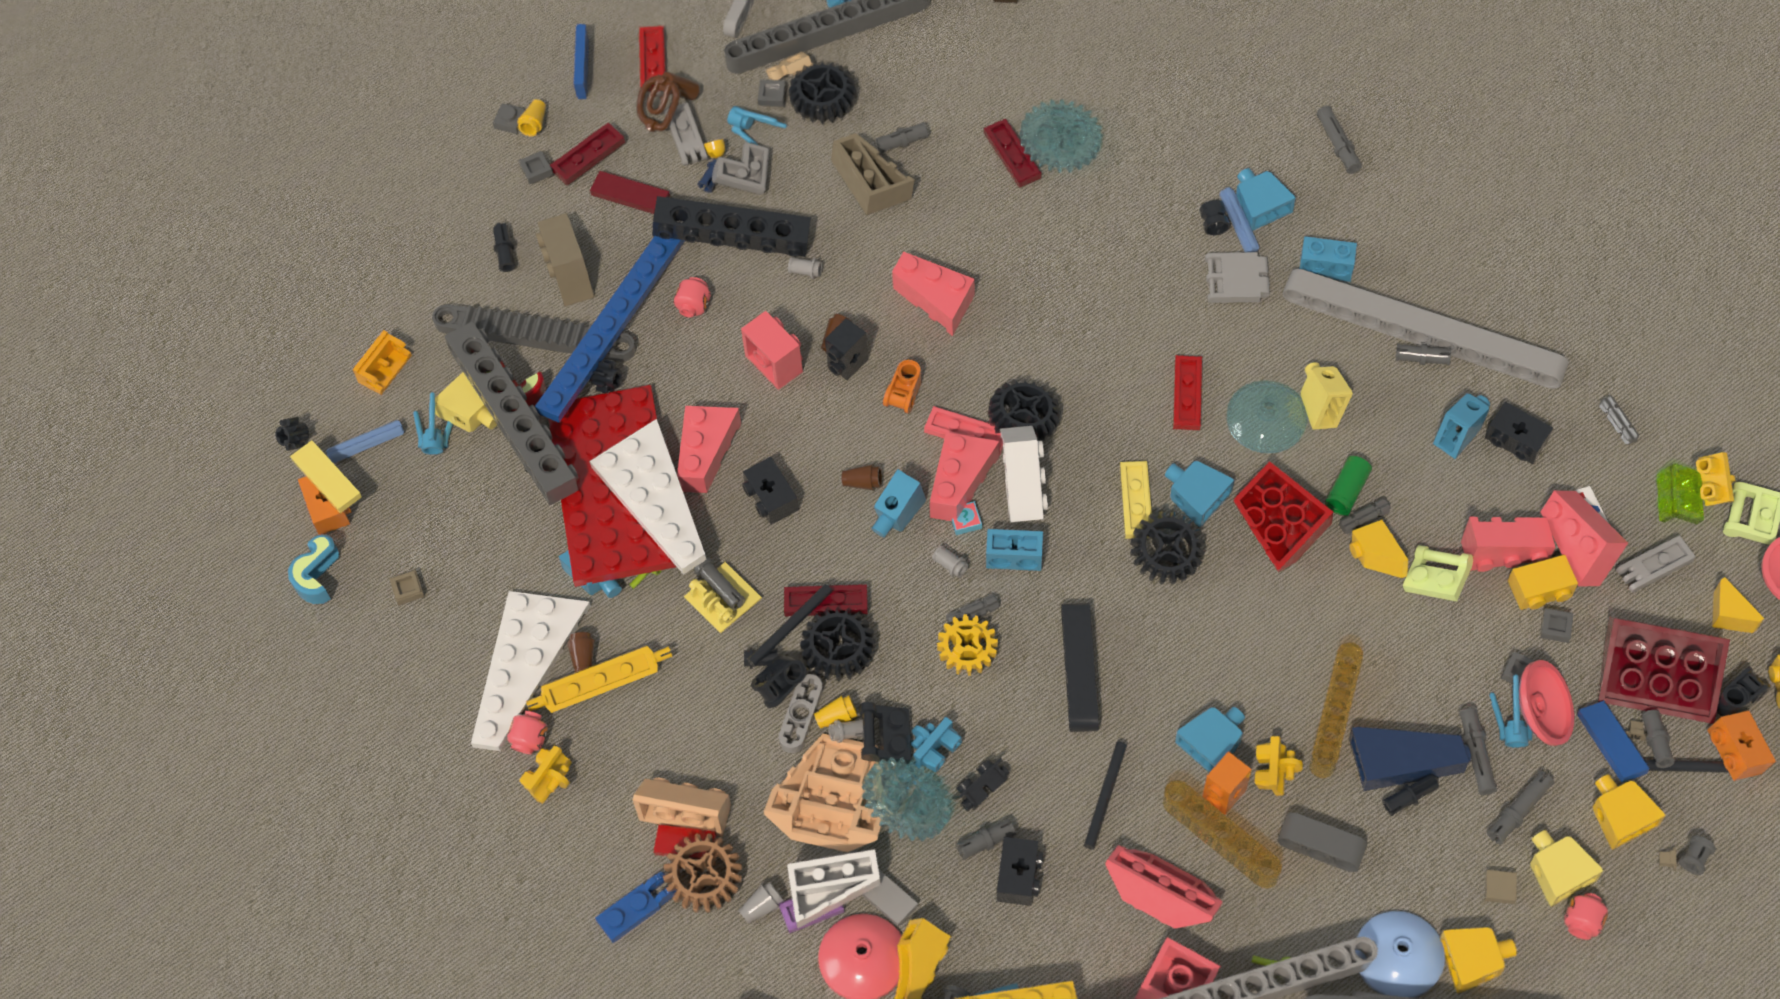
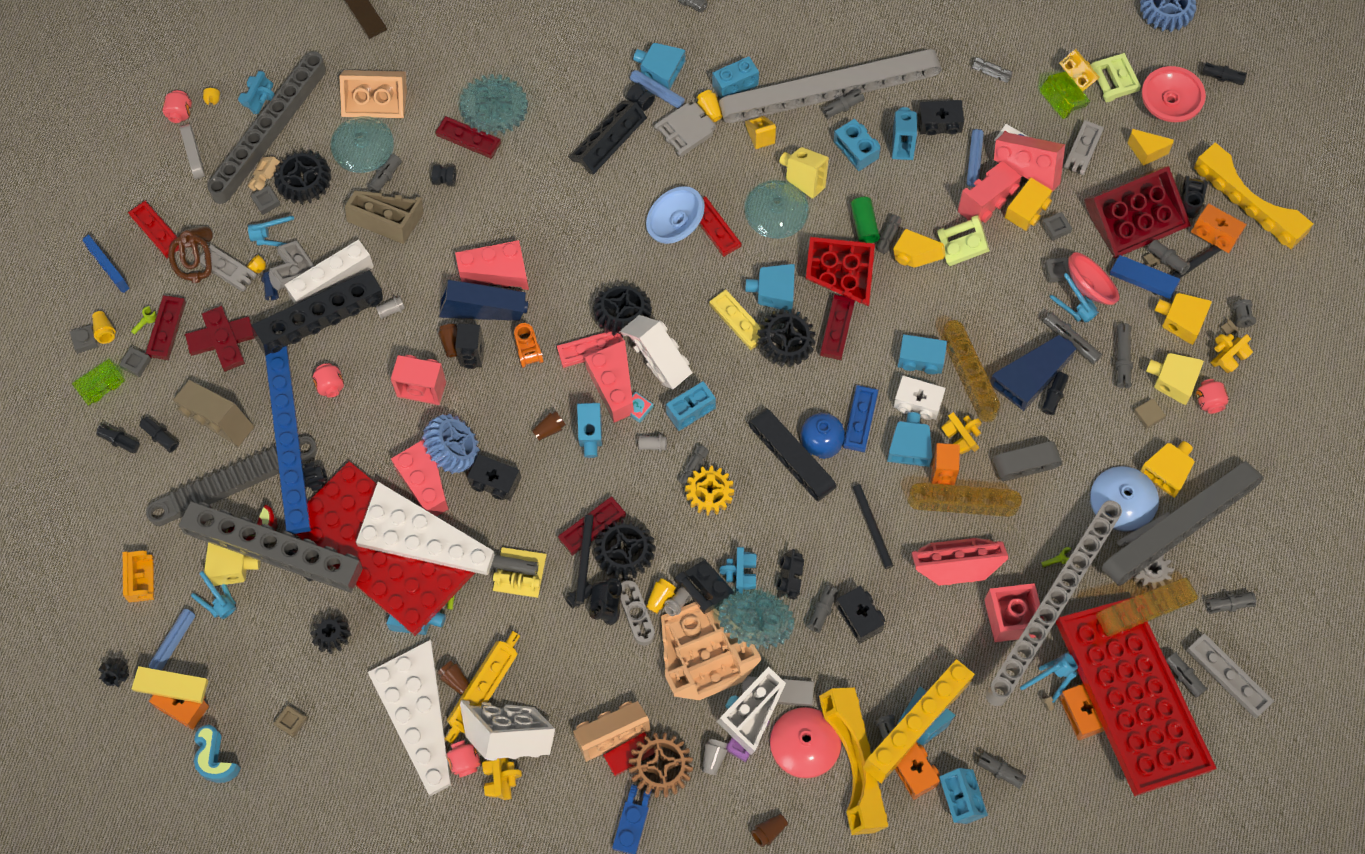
camera: 40 degrees left, 5 degrees up
(465, 227) = (117, 438): none -> black axle
(490, 166) = (98, 382): none -> clear neon green bracket
(504, 532) = (325, 628): none -> black gear
(580, 134) = (146, 319): none -> lime hand
(585, 734) = (507, 731): none -> white wedge
(628, 196) = (223, 338): none -> dark red plate
(758, 424) = (450, 443): none -> medium blue gear
(786, 197) = (332, 271): none -> white brick
(892, 316) = (482, 302): none -> dark blue slope
(905, 106) = (362, 153): none -> clear light blue dish
(952, 54) = (373, 93): none -> light nougat slope
(959, 175) = (444, 175): none -> black wheel
(1127, 670) = (822, 435): none -> blue cylinder
(1151, 237) = (609, 136): none -> black fence
(1152, 354) = (675, 215): none -> light blue dish
(1181, 680) = (860, 418): none -> blue tile
(1230, 573) = (837, 327): none -> dark red plate
(1257, 687) = (930, 396): none -> white brick
(1279, 269) = (709, 104): none -> yellow cone
(1297, 659) = (922, 354): none -> dark azure brick
(1311, 329) = (761, 131): none -> yellow slope
(1399, 403) = (853, 147): none -> dark azure brick
(1526, 495) = (975, 157): none -> medium blue axle
(1634, 888) = (1238, 346): none -> yellow hips

